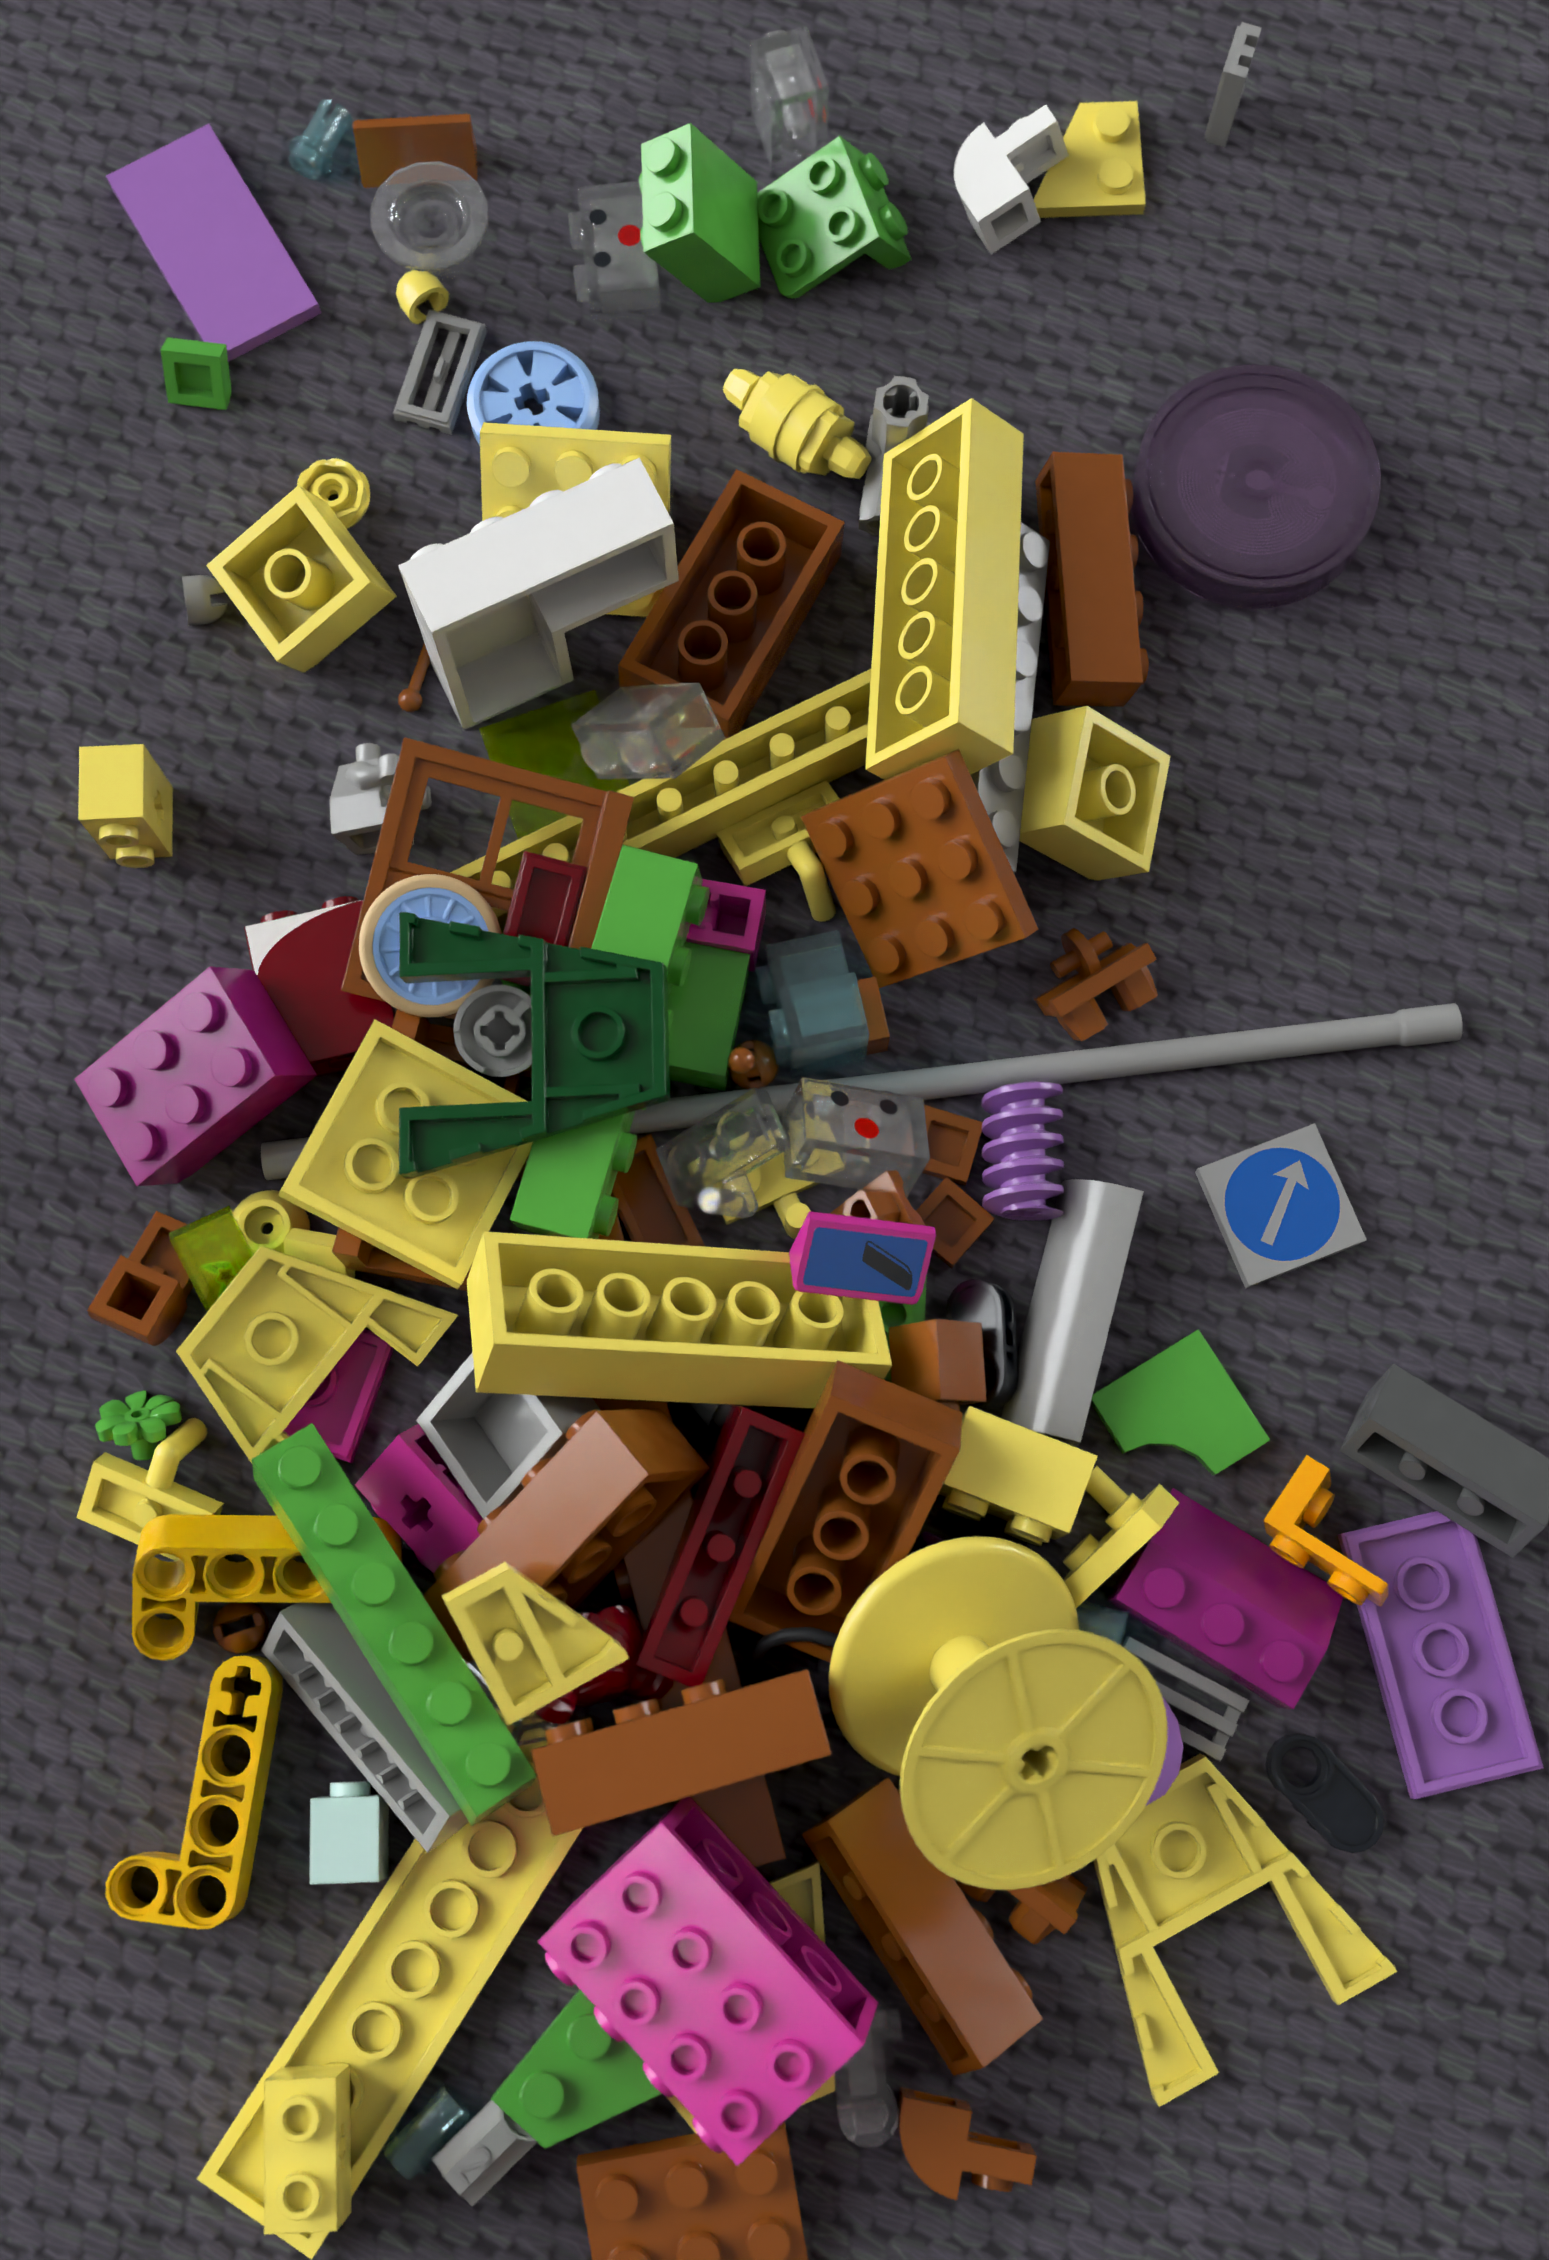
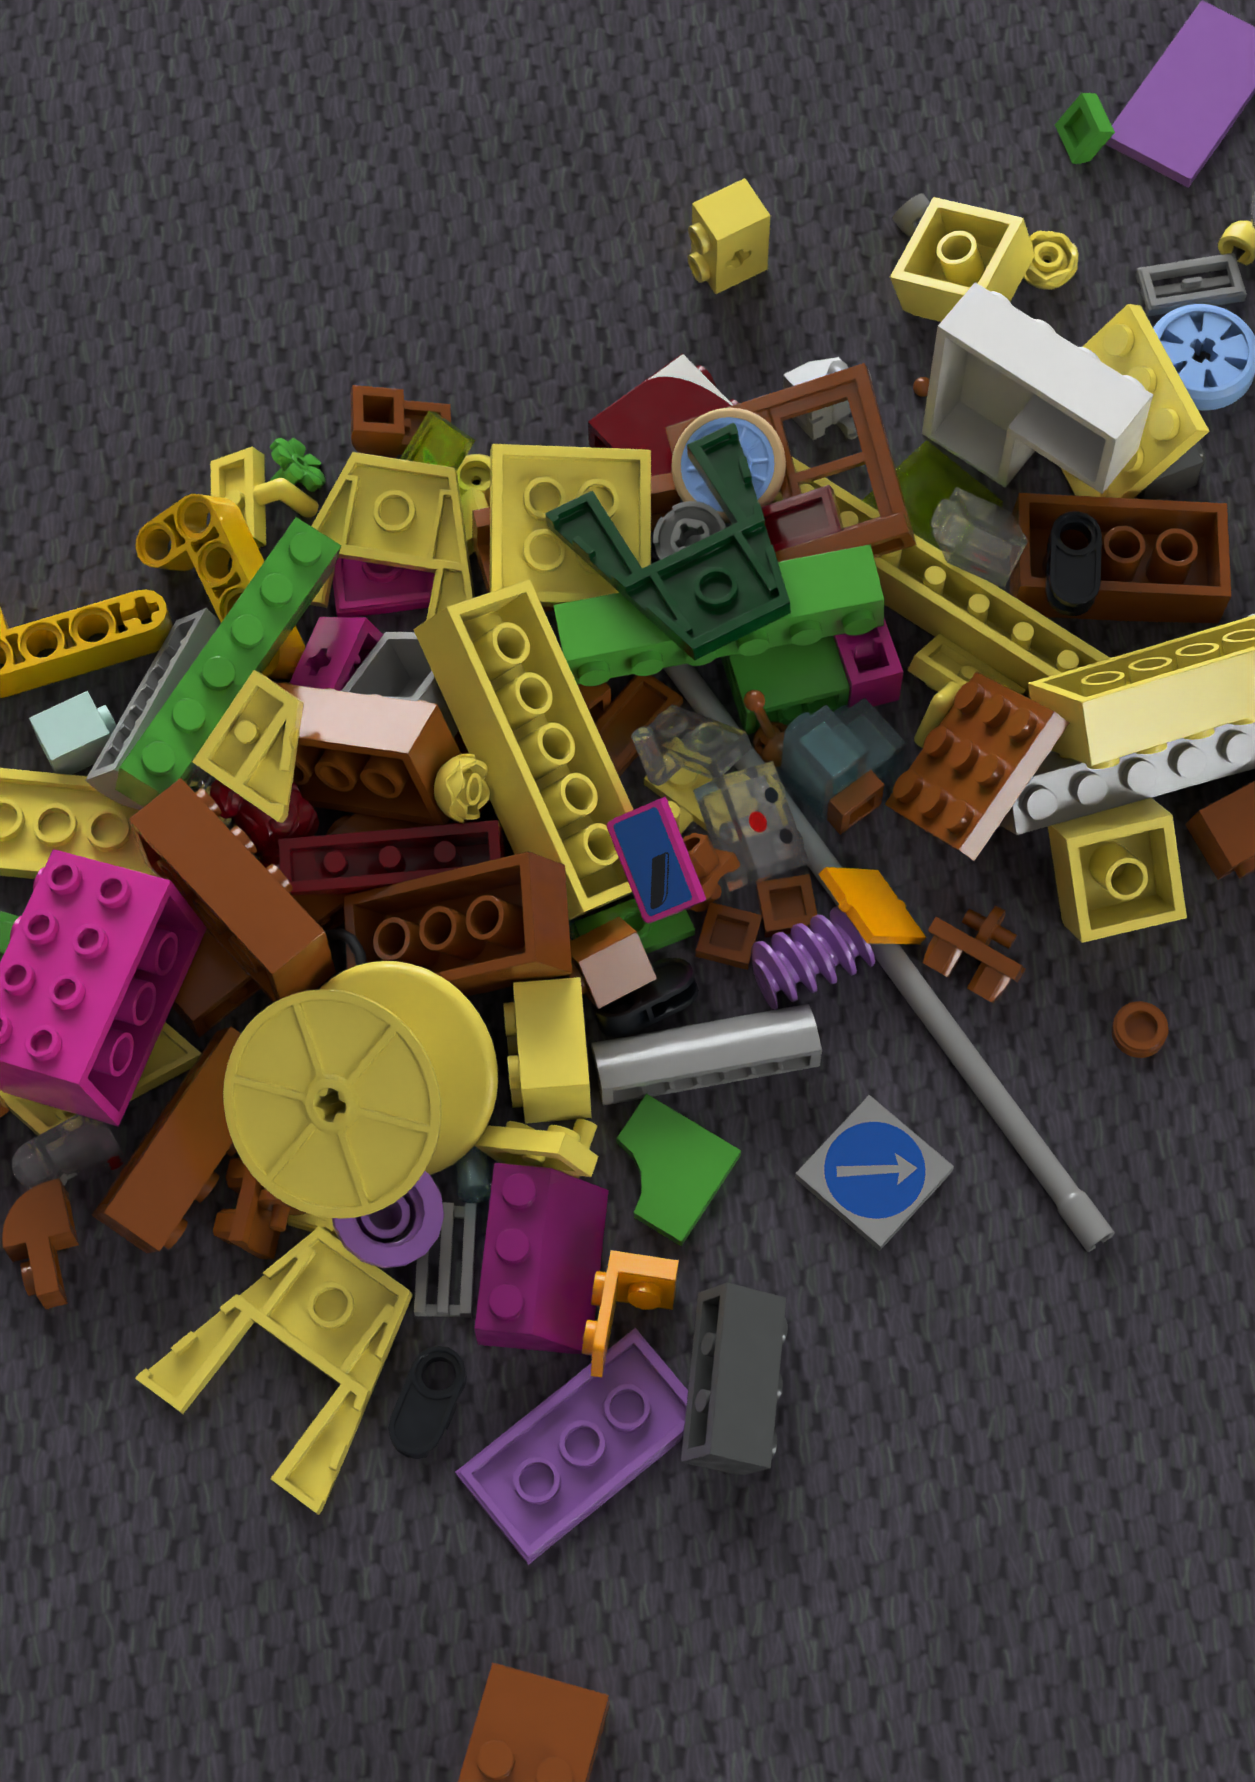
camera: 65 degrees right, 10 degrees down
(195, 1076) = (555, 373): magenta brick -> none
(246, 1639) = (178, 605): dark orange hinge -> none
(687, 1430) = (462, 787): none -> light yellow plate
(748, 660) = (1072, 574): none -> black piece
(1002, 1059) = (872, 906): none -> light orange piece
(1248, 866) = (1139, 1029): none -> dark orange tile

